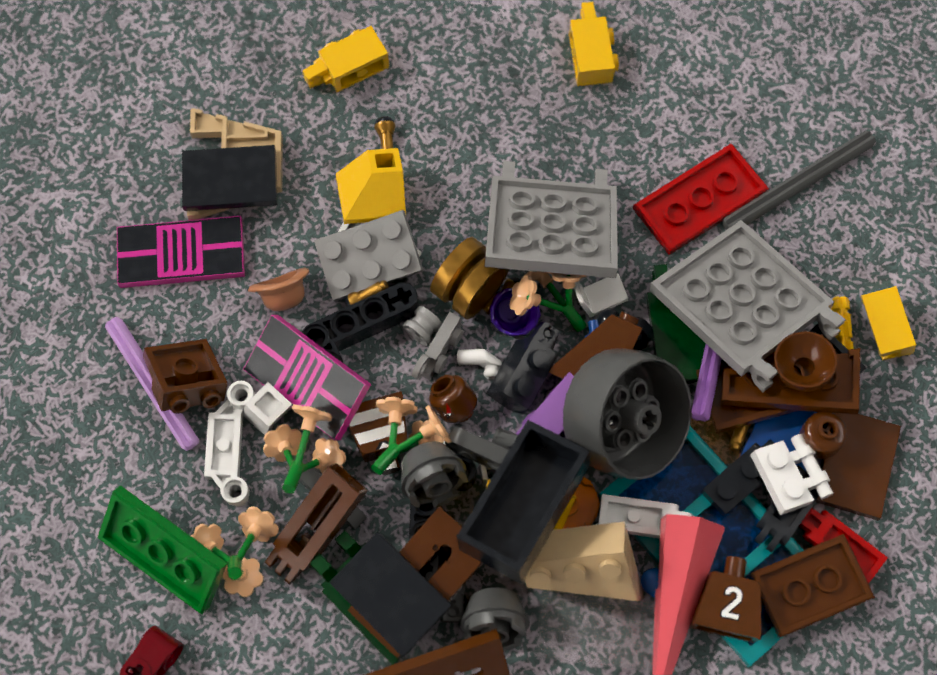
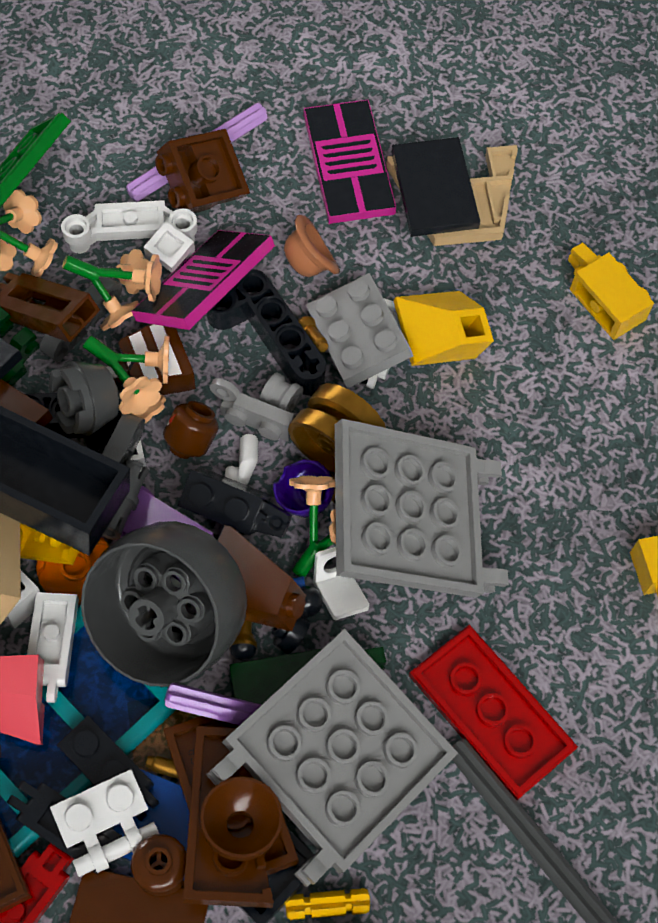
camera: 80 degrees right, 5 degrees down
(385, 127) = (529, 339): pearl gold piece -> none

